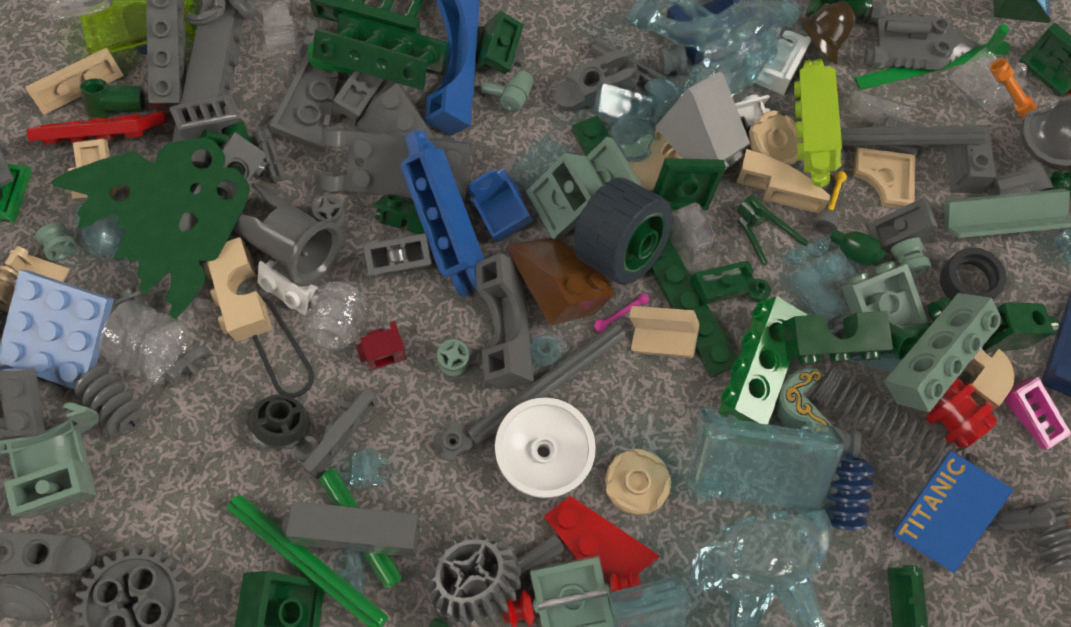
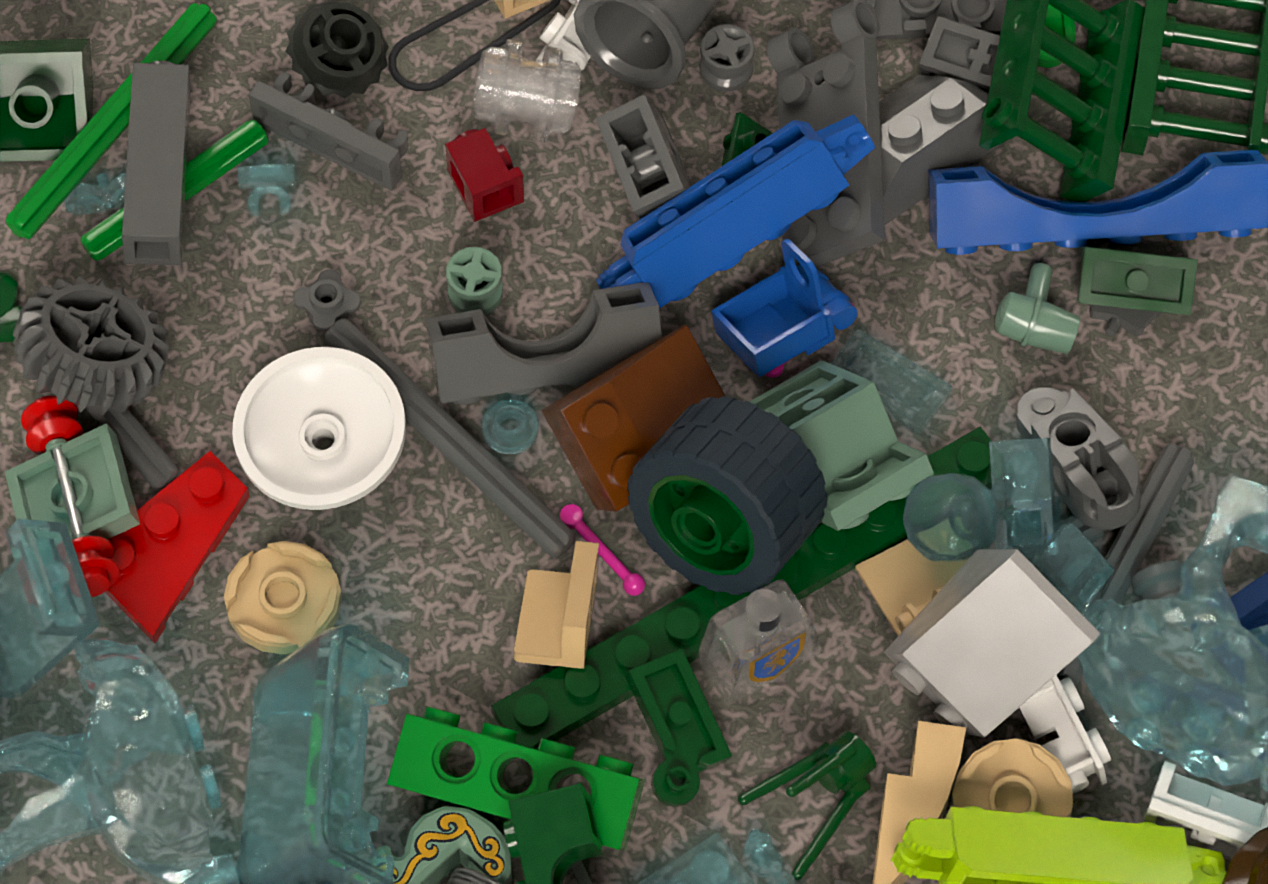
camera: 85 degrees right, 5 degrees down
(689, 181) = (859, 615): dark green tile -> none

